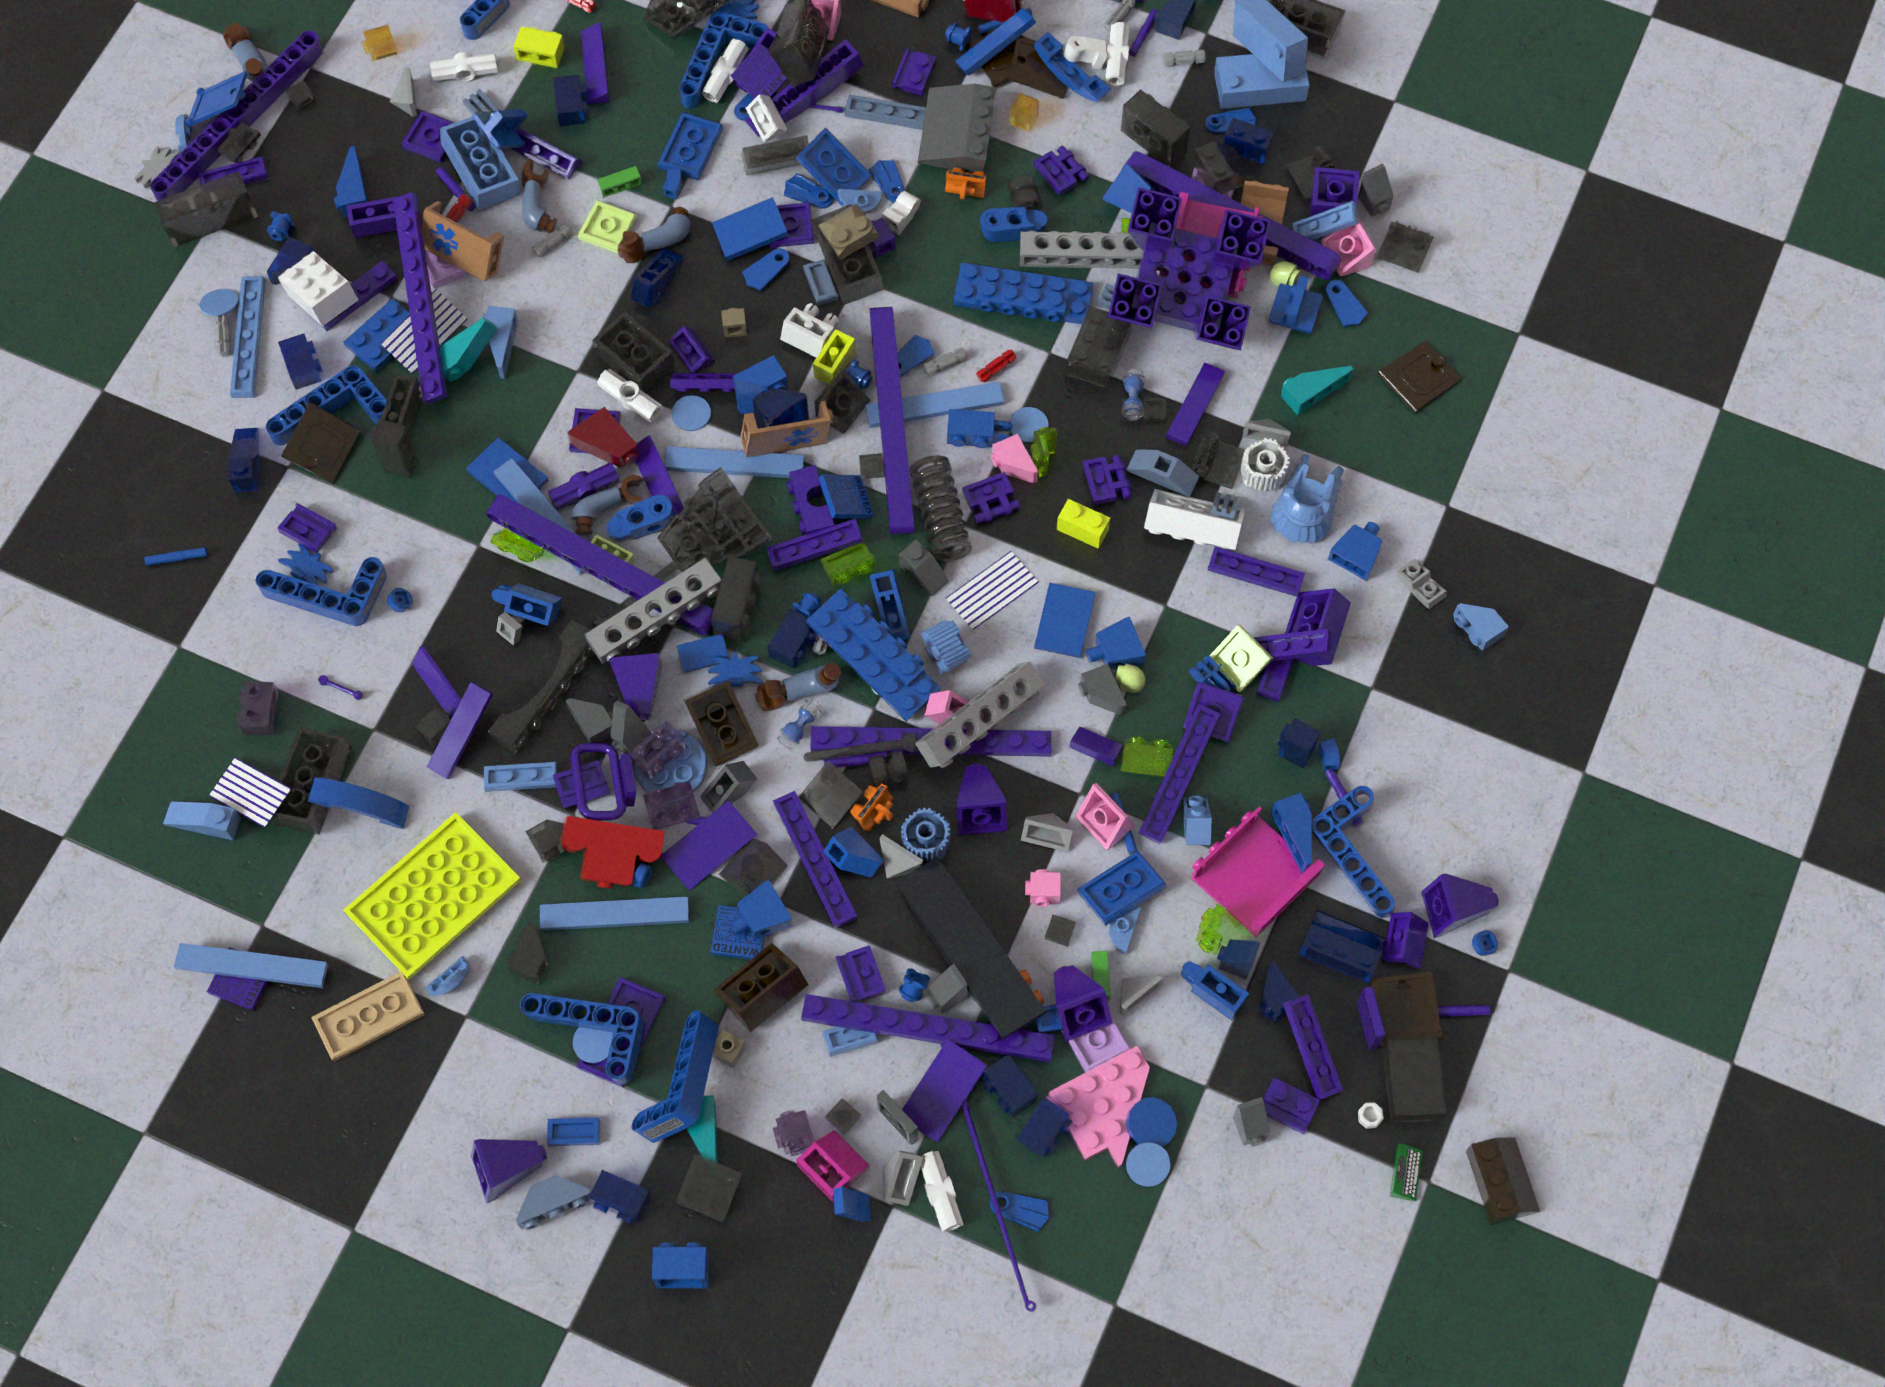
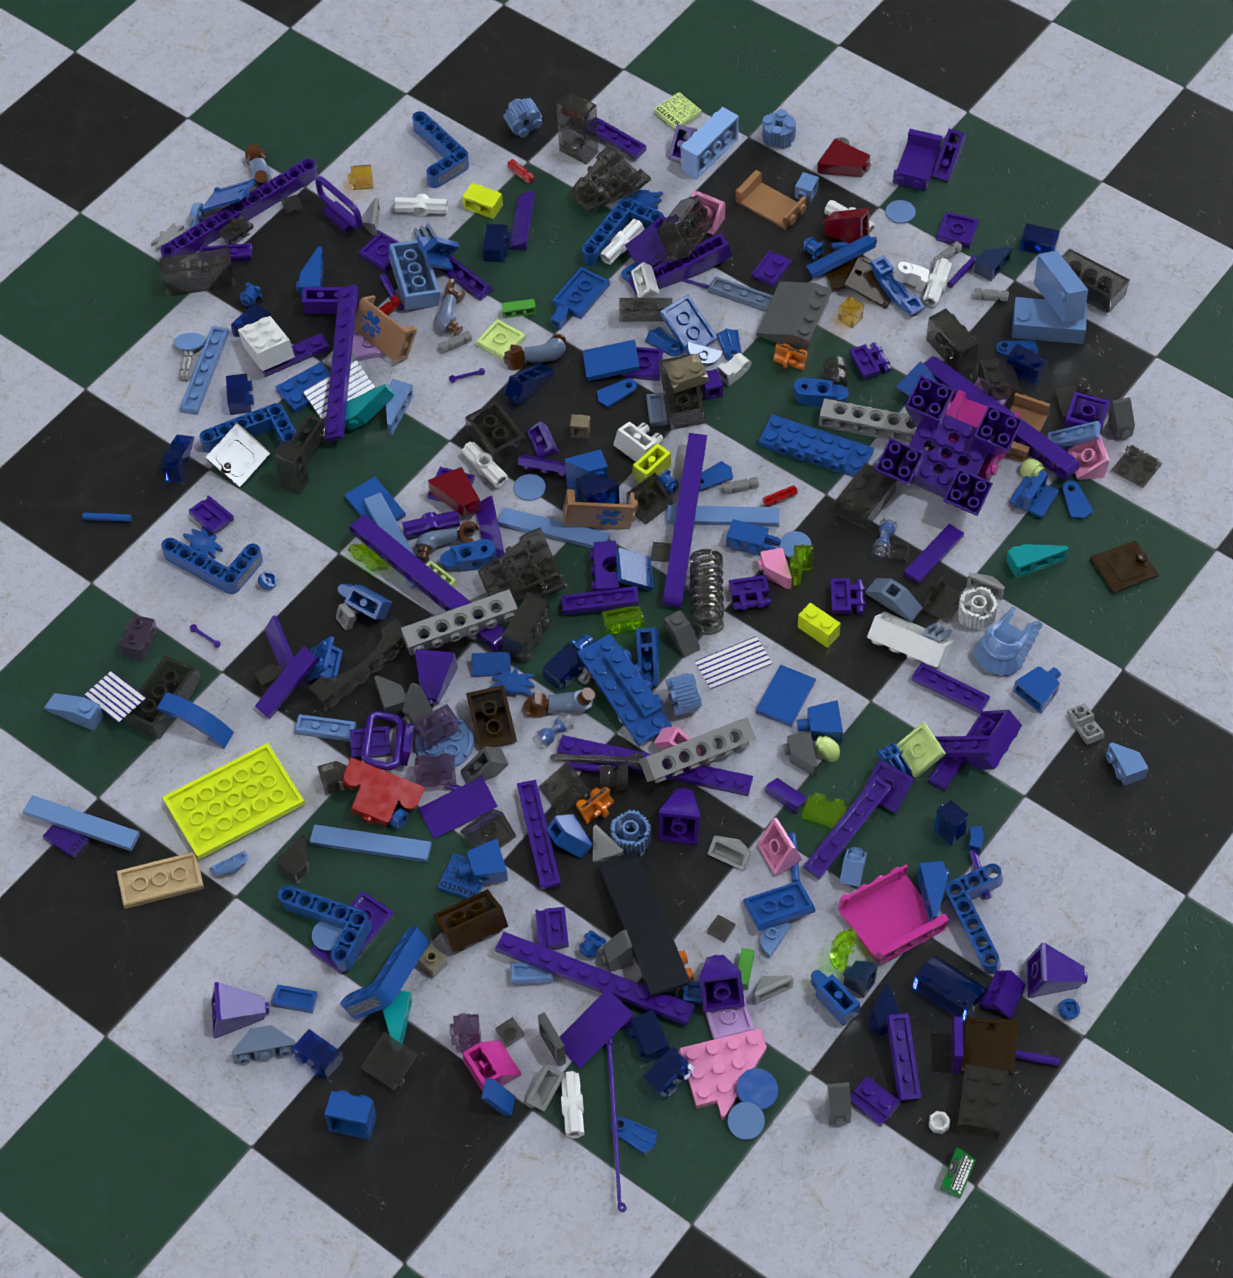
camera: 15 degrees right, 10 degrees down
(360, 94) = (335, 210): none -> dark purple bar
(505, 690) = (328, 661): none -> blue bracket
(562, 288) = (452, 378): none -> dark purple hinge
(1043, 888) = (716, 892): bright pink brick -> none
(1502, 1179) = (1037, 1195): dark brown slope -> none

